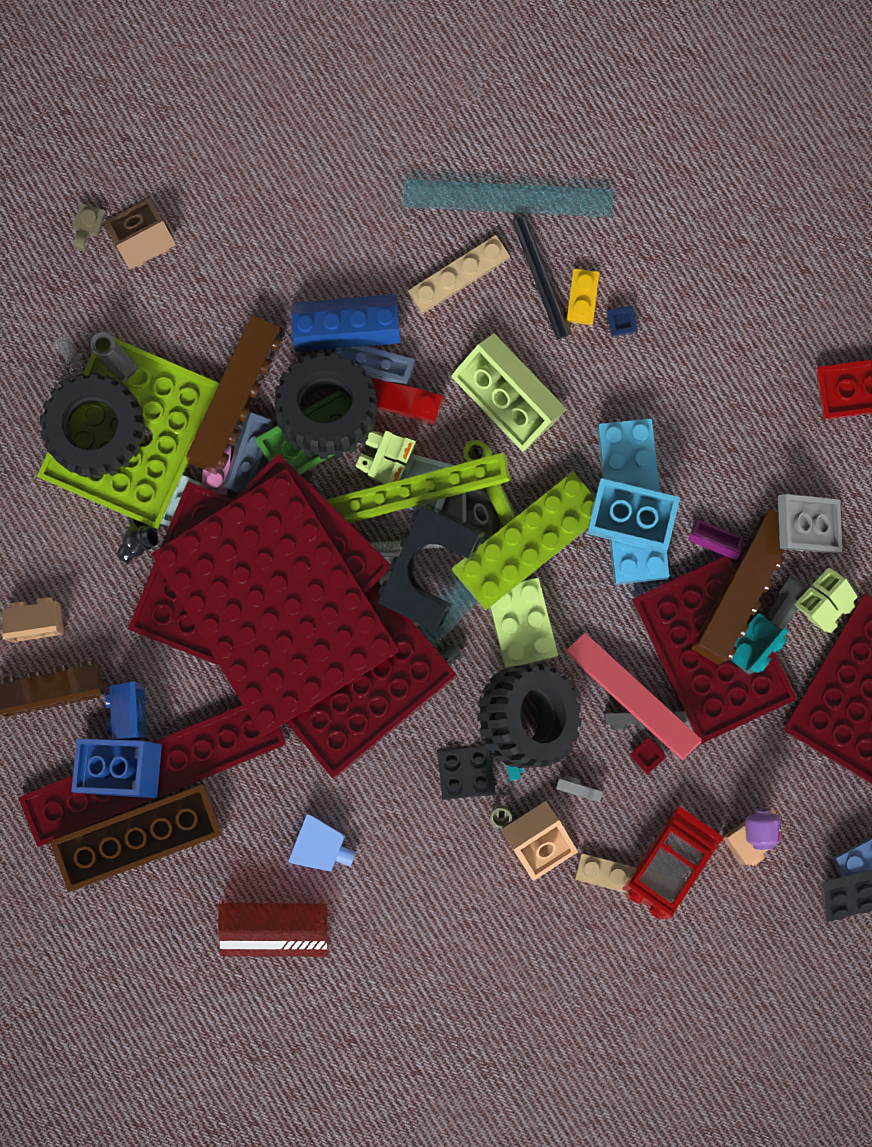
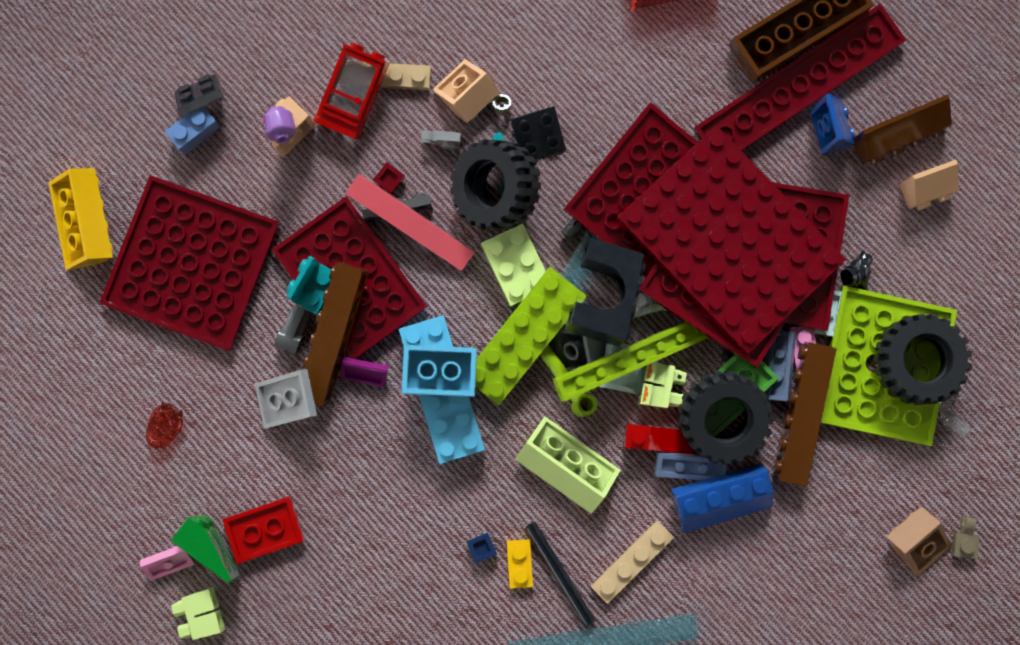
camera: 165 degrees right, 0 degrees up
(115, 358) = (916, 424): dark grey piece -> none
(116, 767) = (831, 73): blue slope -> none
(320, 846) = (647, 50): light blue torso -> none
(835, 599) = (251, 339): yellowish green hips -> none

